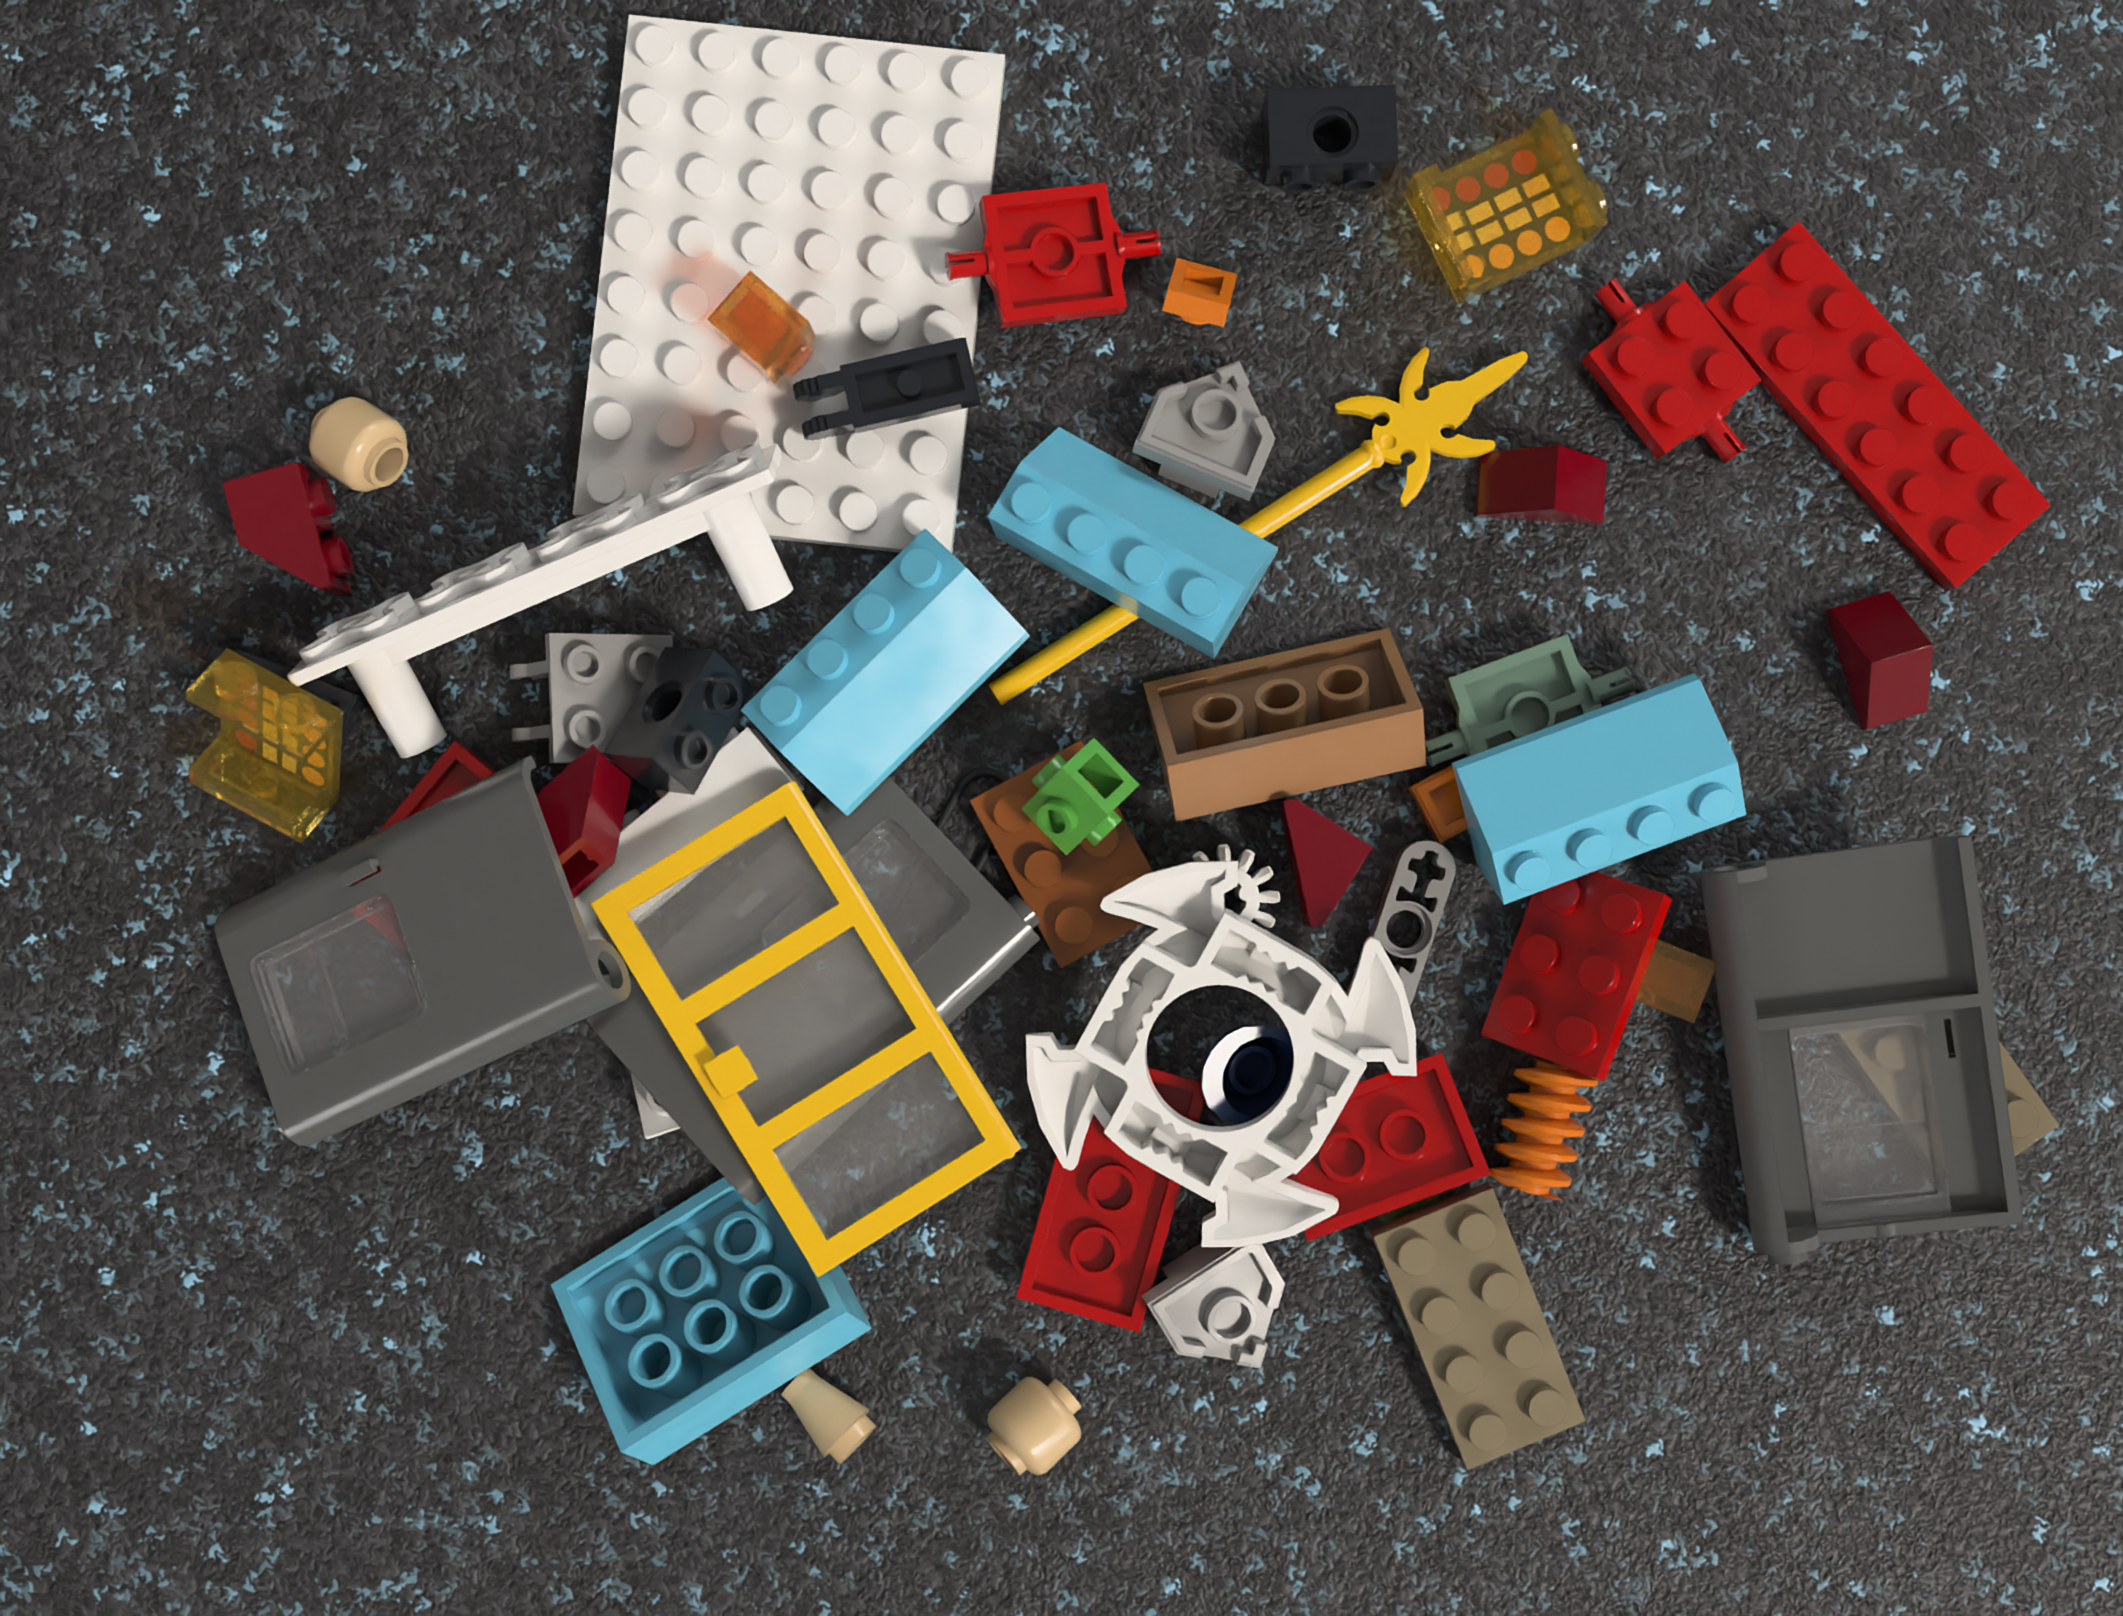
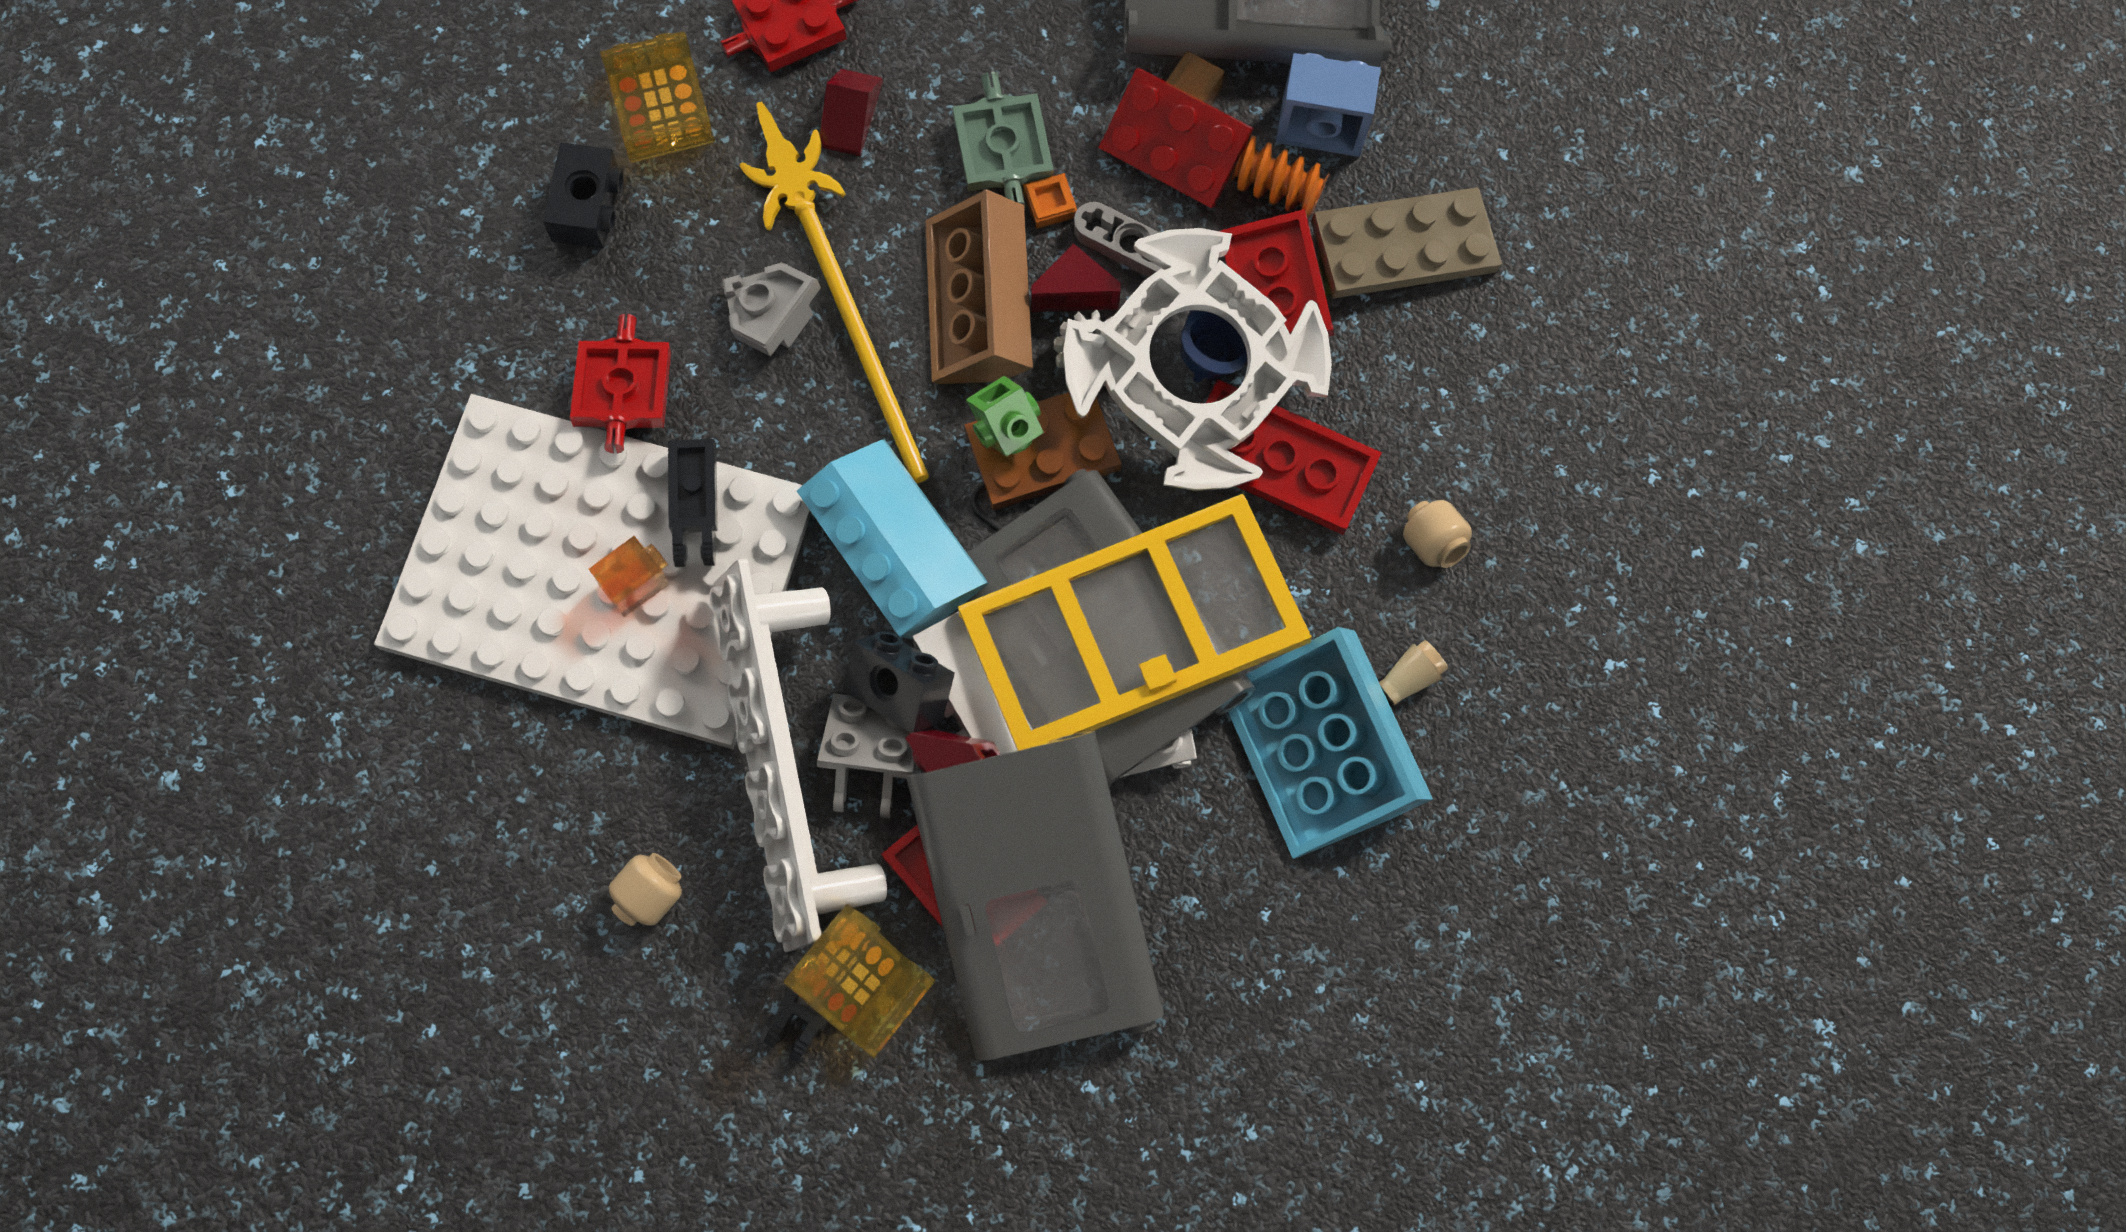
camera: 85 degrees left, 15 degrees down
(289, 523) = (696, 953): dark red slope -> none
(1131, 540) = (835, 364): medium azure slope -> none
(1199, 293) = (670, 294): orange plate -> none
(1218, 1302) = (1366, 400): light grey plate -> none
(1599, 789) = (1060, 102): medium azure slope -> none
(1669, 1186) = (1327, 104): none -> medium blue brick

